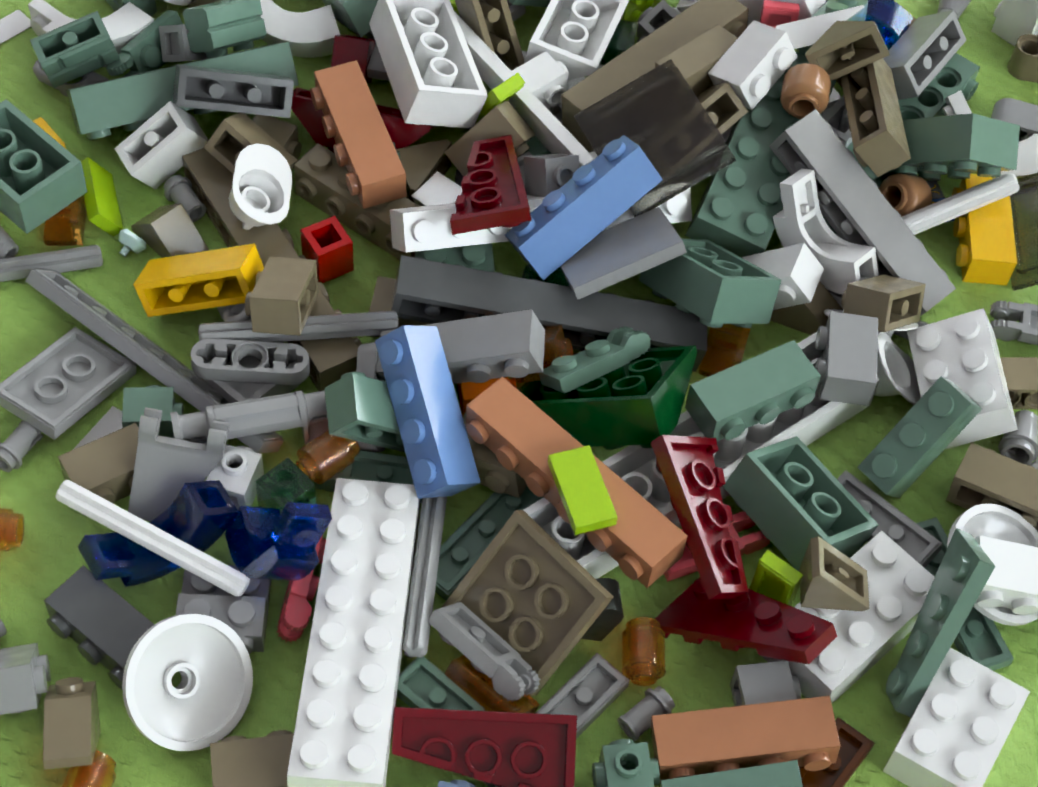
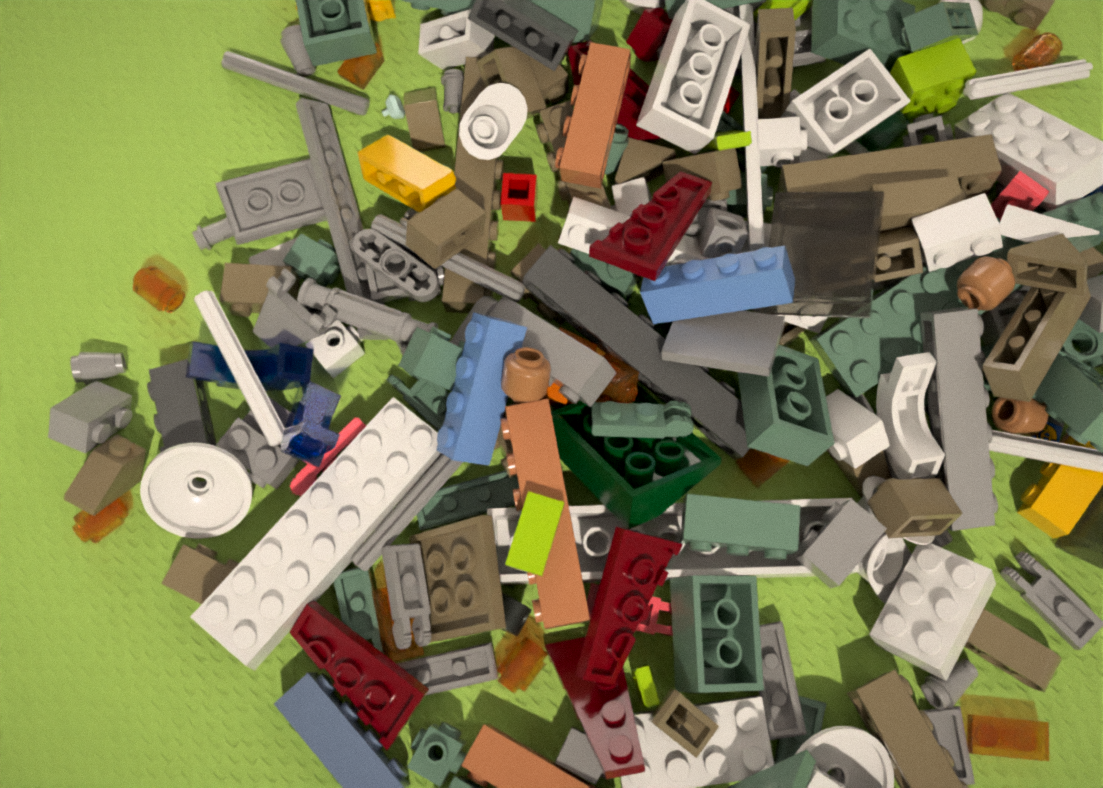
camera: 45 degrees right, 20 degrees up
(101, 198) = (393, 57): lime tile -> none
(284, 485) = (359, 383): clear green brick -> none
(326, 456) = (395, 378): clear orange brick -> none
(467, 366) = (525, 375): none -> medium nougat head
(639, 717) = (491, 711): light grey pin -> none
(919, 437) = (853, 642): sand green brick -> none

